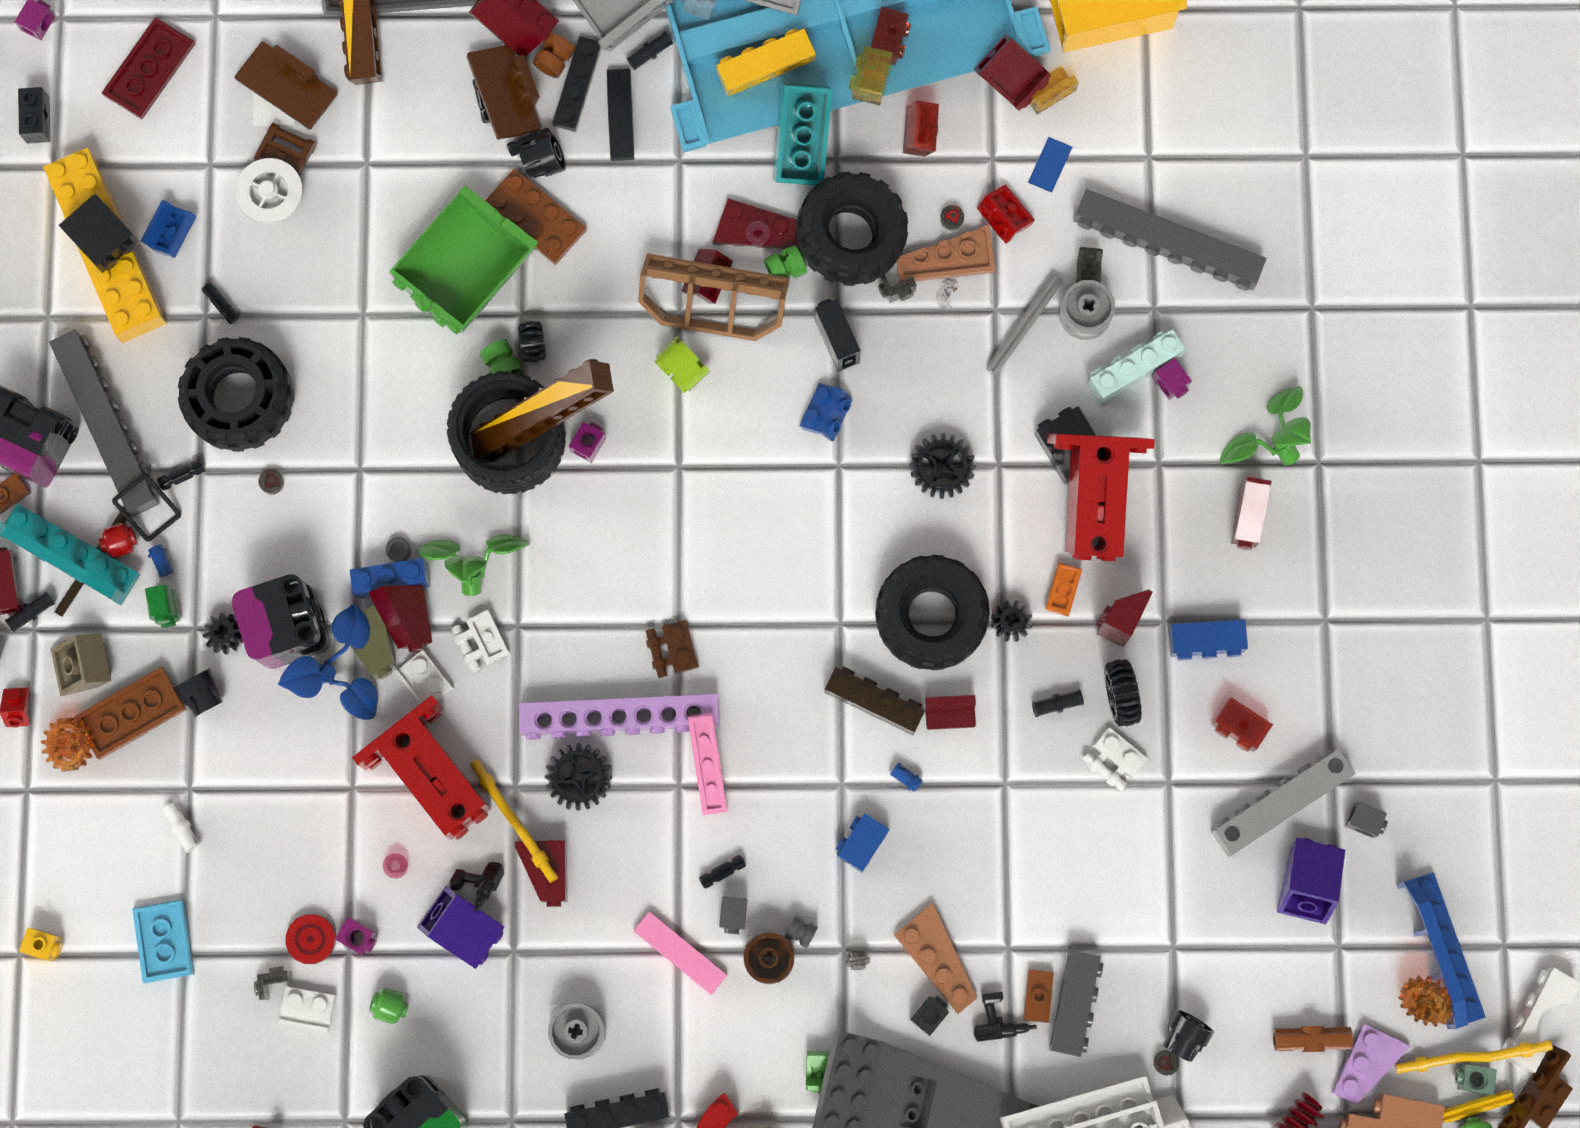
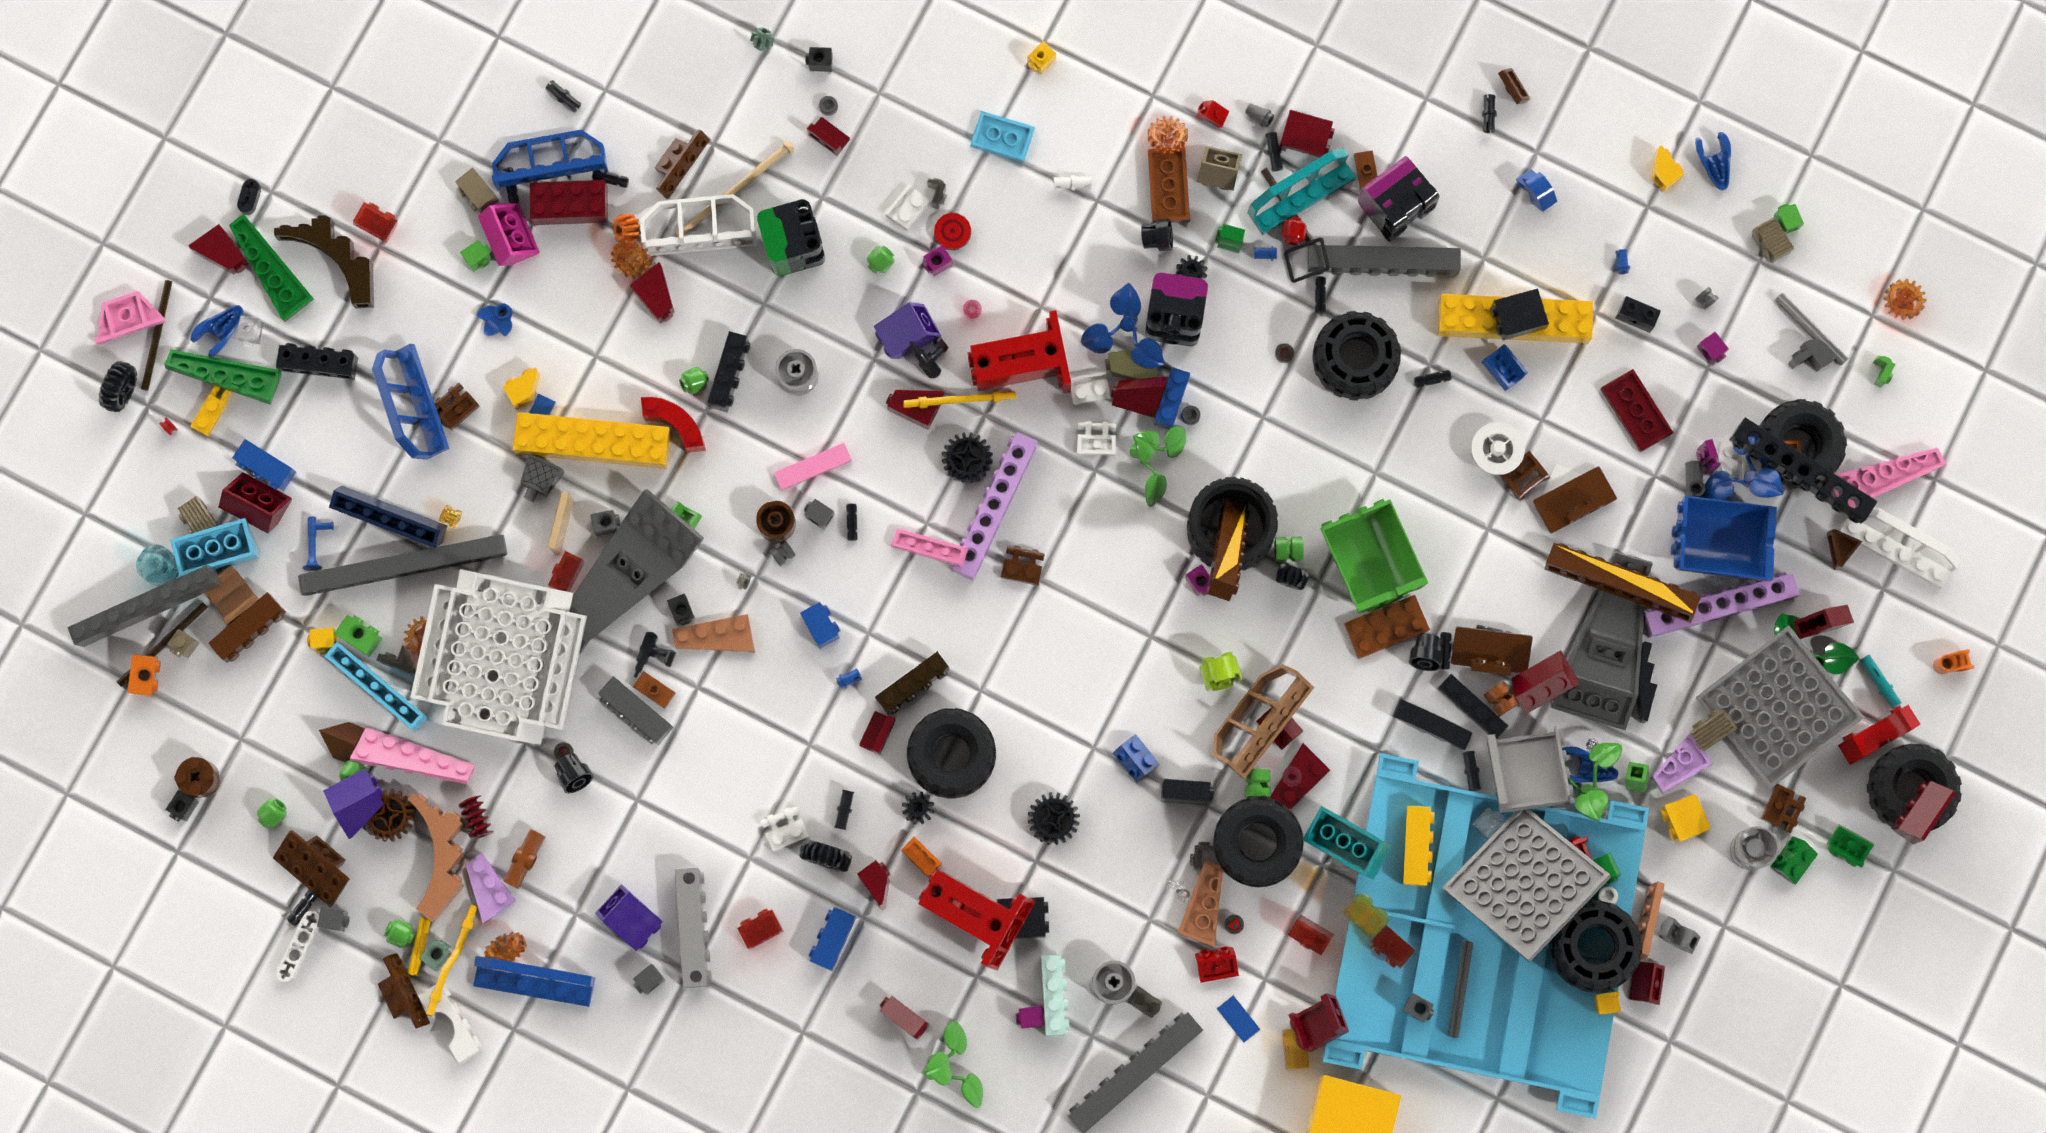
camera: 115 degrees right, 0 degrees up
(1024, 324) = (1127, 934): light grey axle -> none

